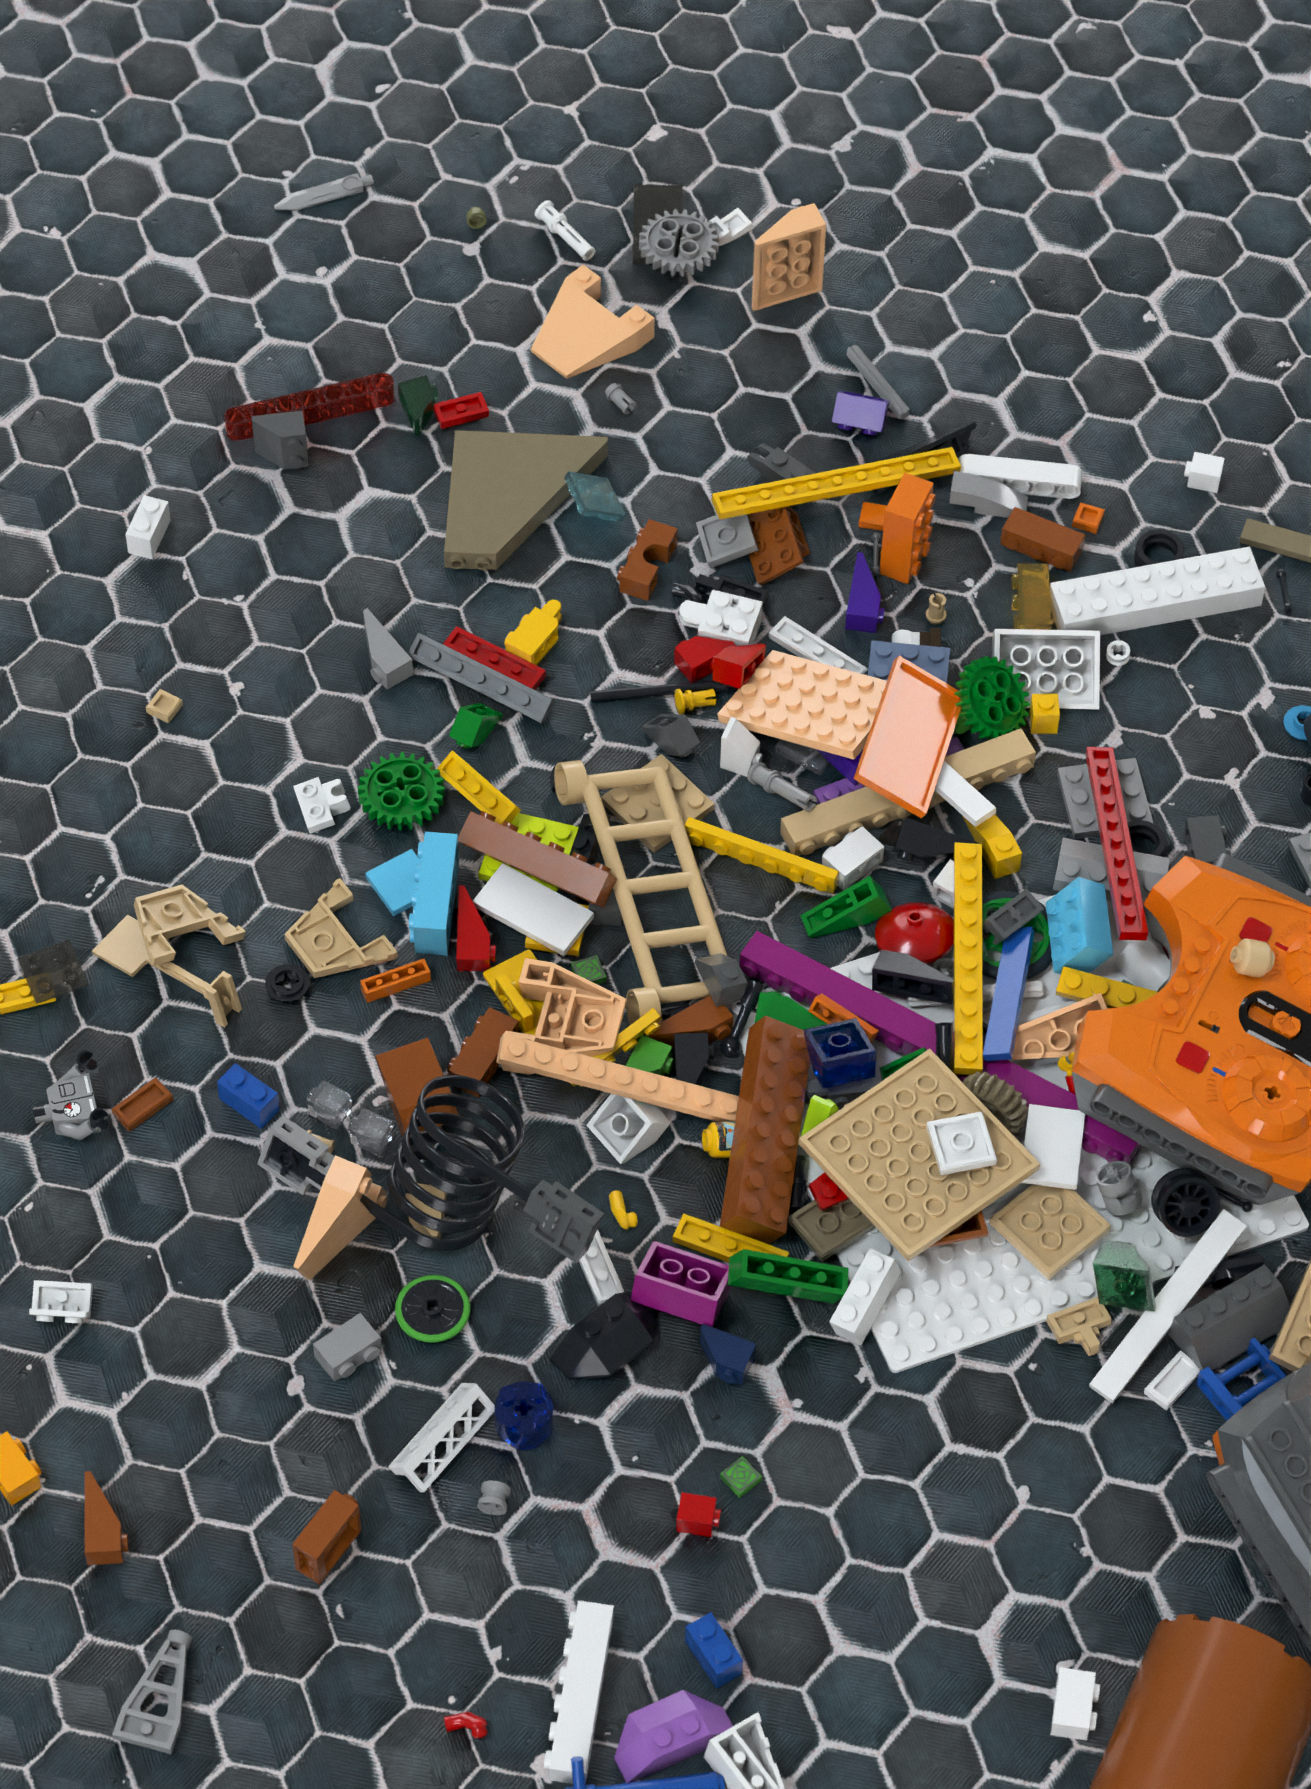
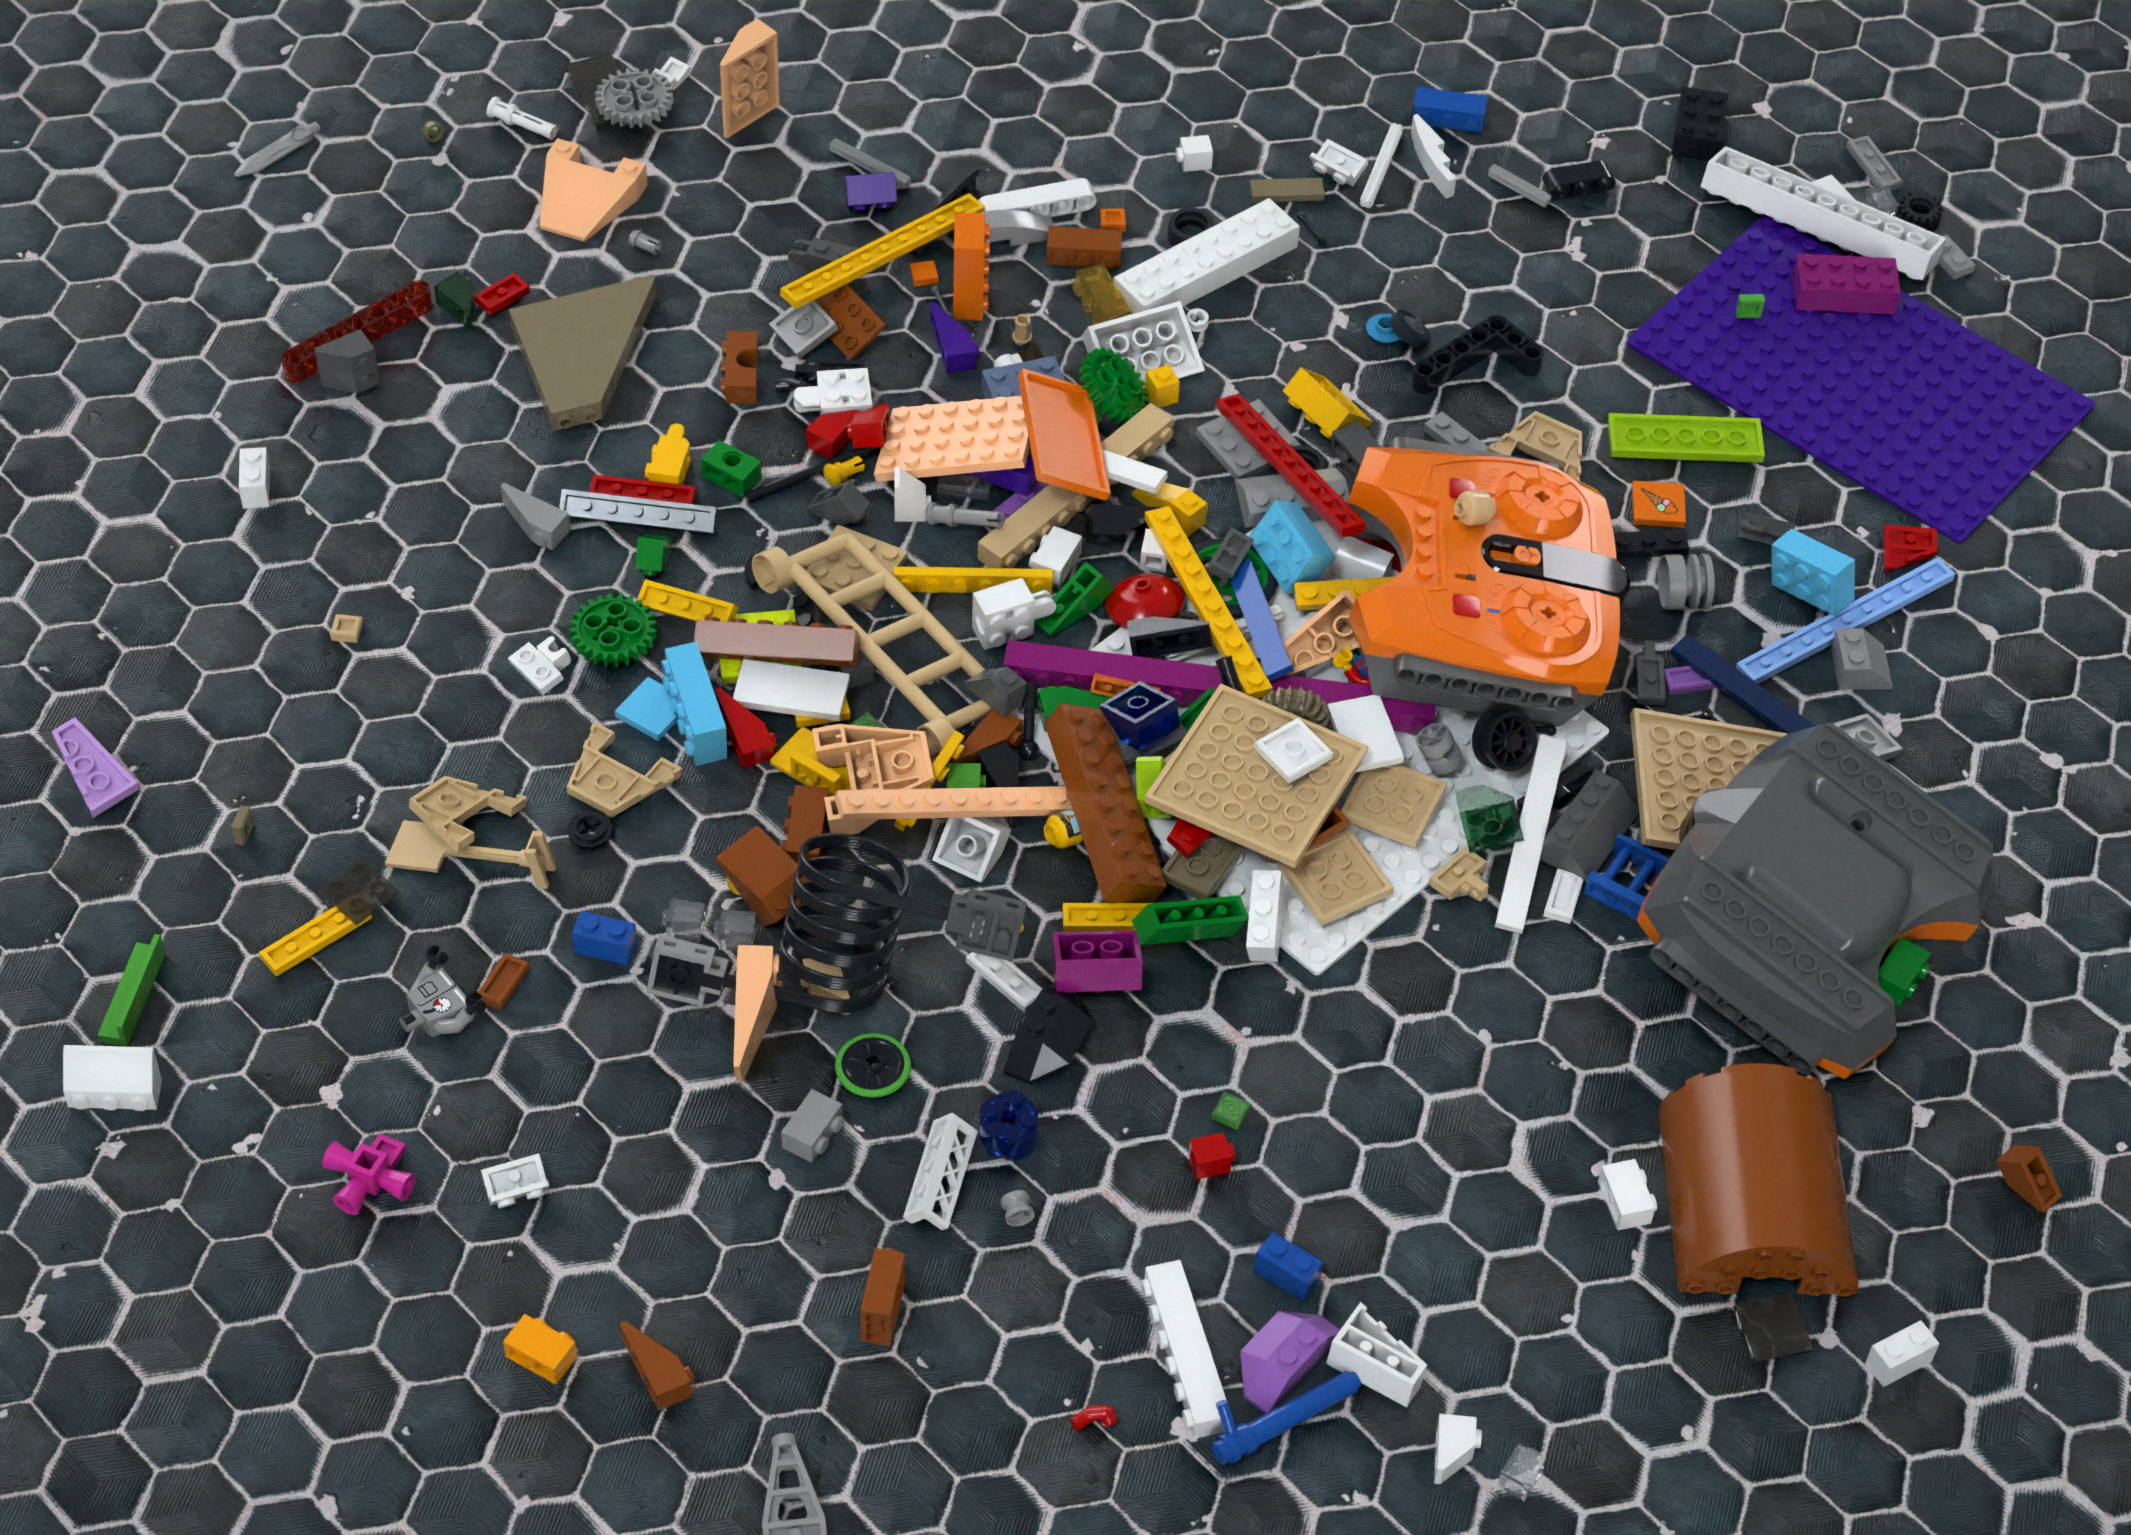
camera: 25 degrees left, 5 degrees down
(395, 980) = (691, 794): orange piece -> none
(588, 662) = (731, 468): none -> green brick
(594, 496) = (665, 328): clear light blue tile -> none
(727, 1354) = (1164, 1009): dark blue slope -> none
(773, 901) = (1008, 612): none -> white brick
(811, 647) = (915, 394): white tile -> none
(955, 1283) = (1337, 878): none -> tan plate
(1199, 784) = (1323, 402): none -> yellow slope

